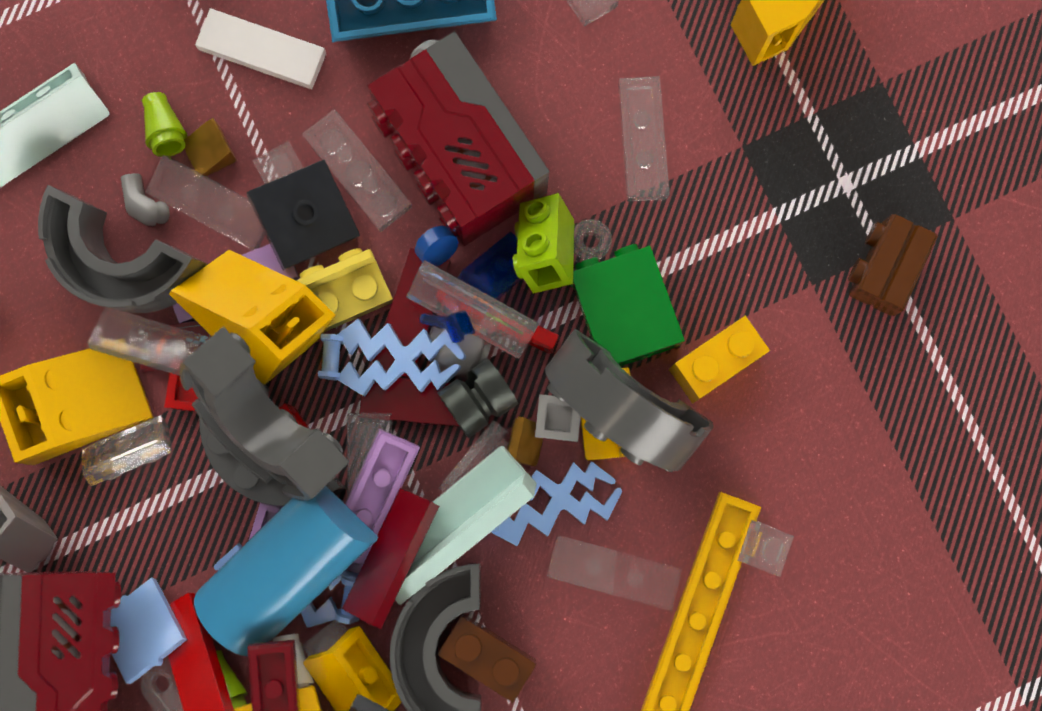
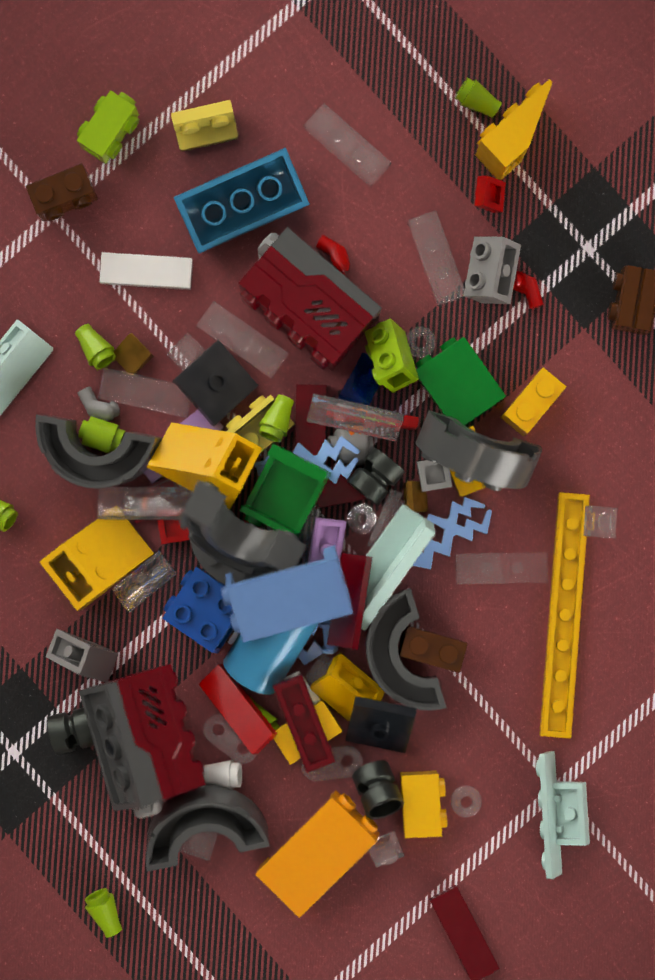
camera: 15 degrees left, 5 degrees up
(128, 236) = (101, 434): none -> lime brick
(145, 629) = (200, 697): light blue piece -> none
(193, 514) = (201, 610): none -> blue brick
(303, 528) = (288, 598): none -> medium blue panel
(348, 383) = (285, 491): none -> green panel
(366, 285) = (276, 420): none -> lime cone
(436, 245) = (315, 379): blue tile -> none
(436, 443) = (354, 515): none -> clear plate
(455, 324) = (347, 431): clear blue hand -> none
(514, 93) = (336, 252): none -> red arm
(712, 171) = (492, 270): none -> light grey brick
(736, 74) = (490, 194): none -> red plate
(752, 207) = (528, 286): none -> red arm

